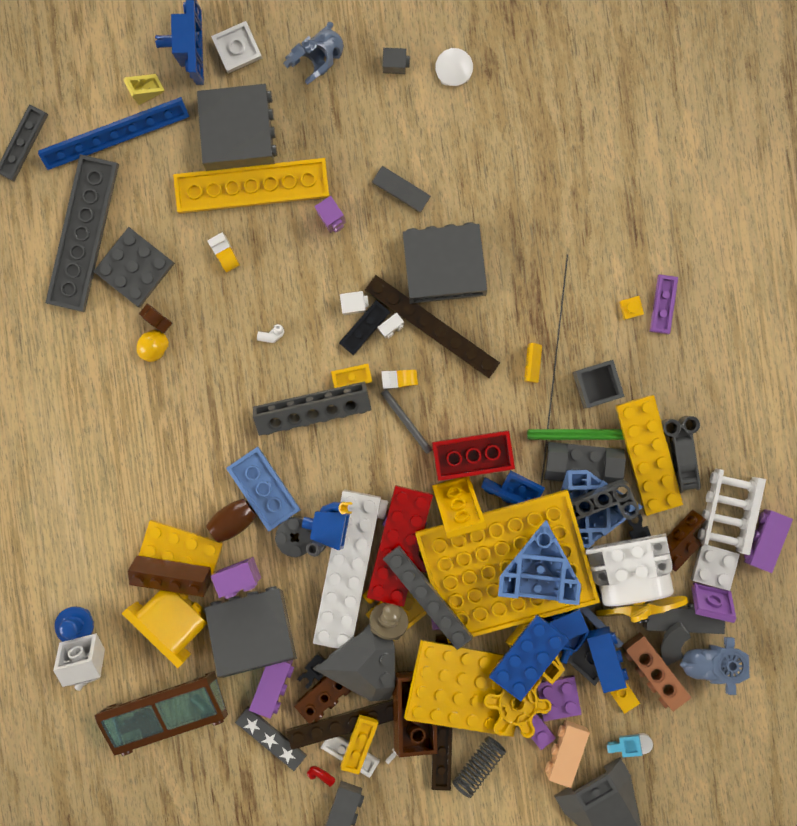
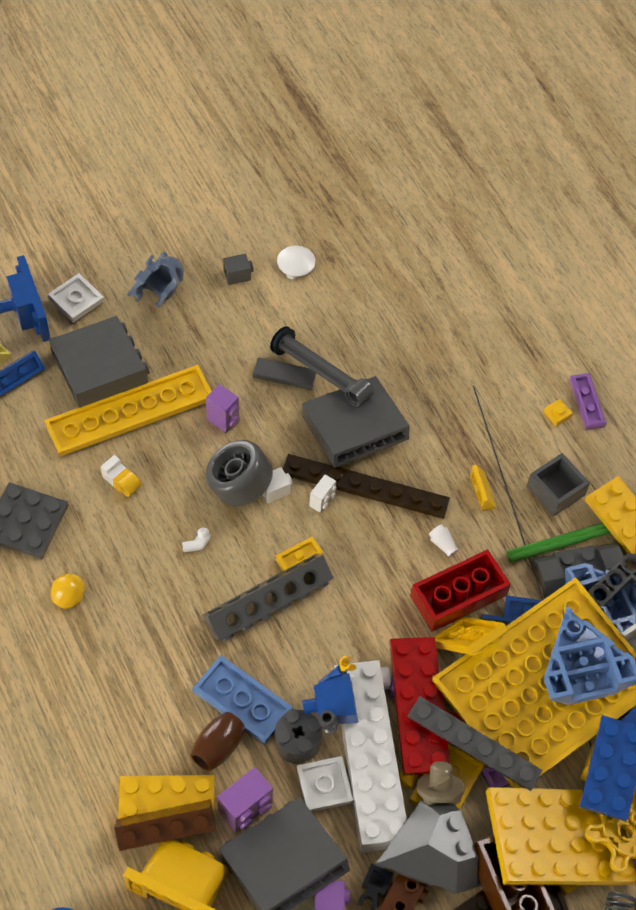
camera: 25 degrees left, 30 degrees down
(155, 318) = (64, 560): reddish brown piece -> none
(304, 579) = (324, 784): none -> white plate
(322, 287) = (239, 473): none -> dark grey wheel
(364, 327) = (294, 508): black tile -> none
(399, 378) = (350, 543): leg -> none
(406, 421) = (375, 584): dark grey bar -> none
(452, 237) = (355, 390): none -> dark grey piece
(479, 401) = (442, 538): none -> white cone

